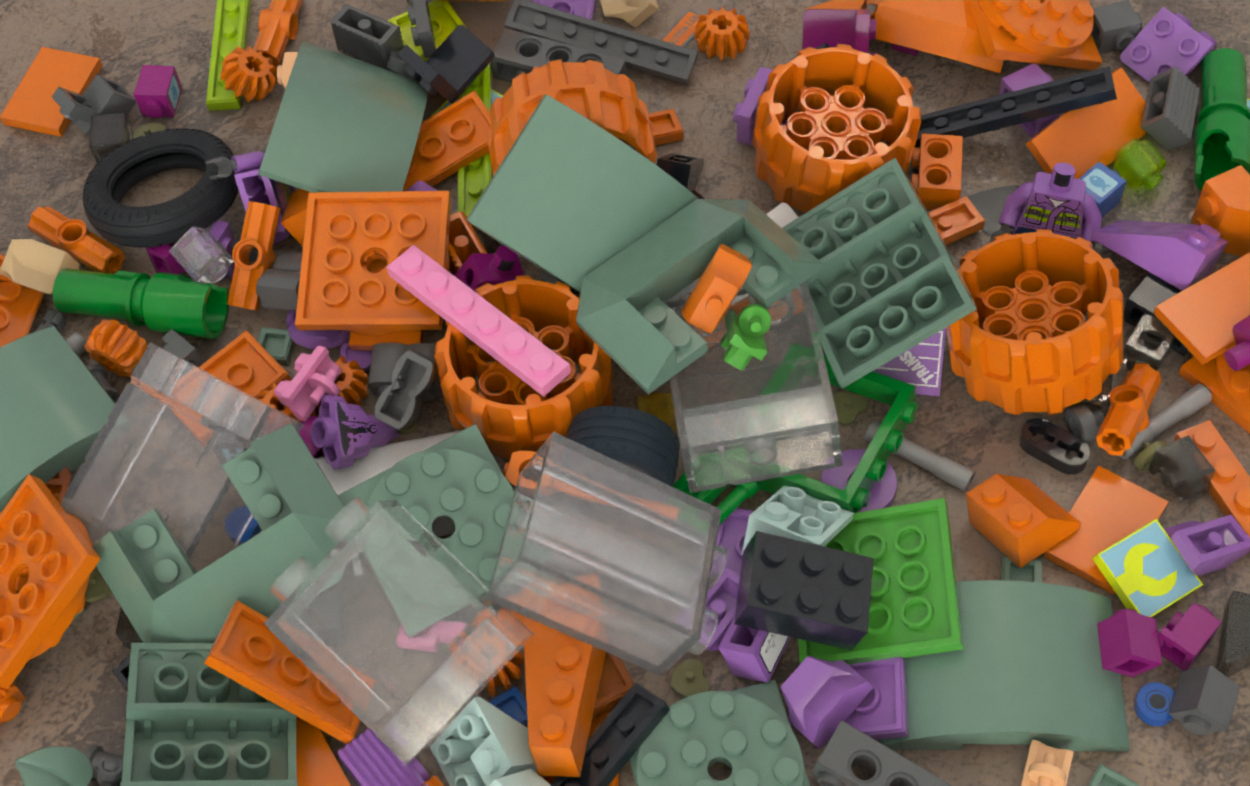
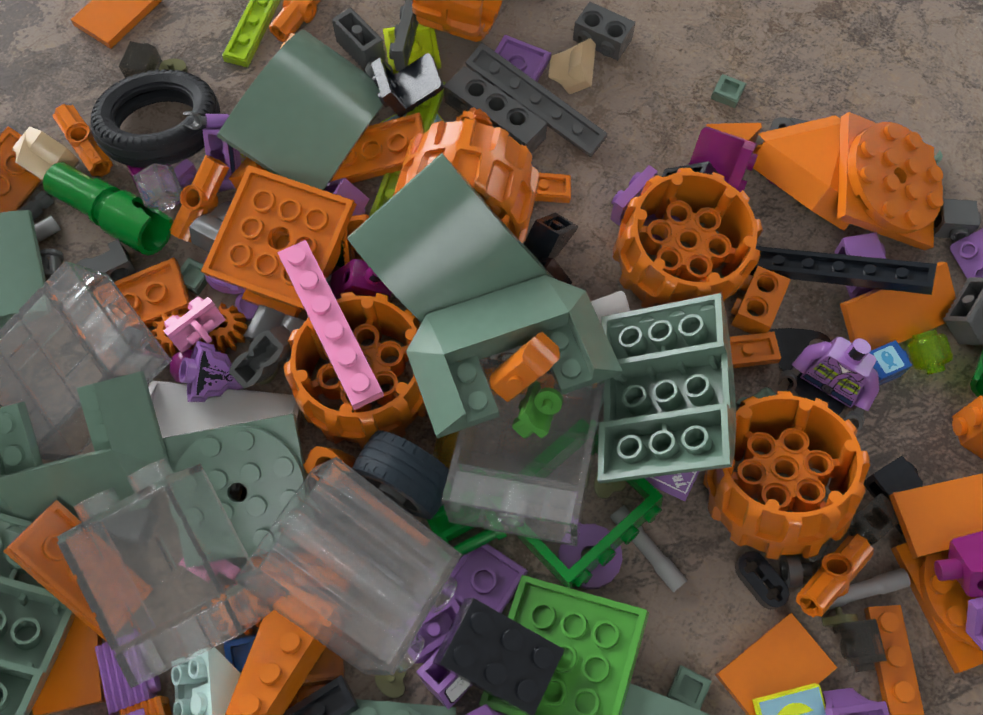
camera: 15 degrees right, 10 degrees up
(100, 98) = (143, 29): dark grey brick -> none
(115, 347) = (72, 240): orange gear -> none
(158, 91) = (190, 34): magenta brick -> none
(248, 74) = (259, 41): orange gear -> none
(683, 29) = (606, 109): orange sticker -> none
(722, 33) = (633, 122): orange gear -> none
(798, 517) = (519, 585): light aqua slope -> none
(1018, 517) = (708, 638): orange slope -> none
(1171, 251) = (920, 437): medium lavender slope -> none

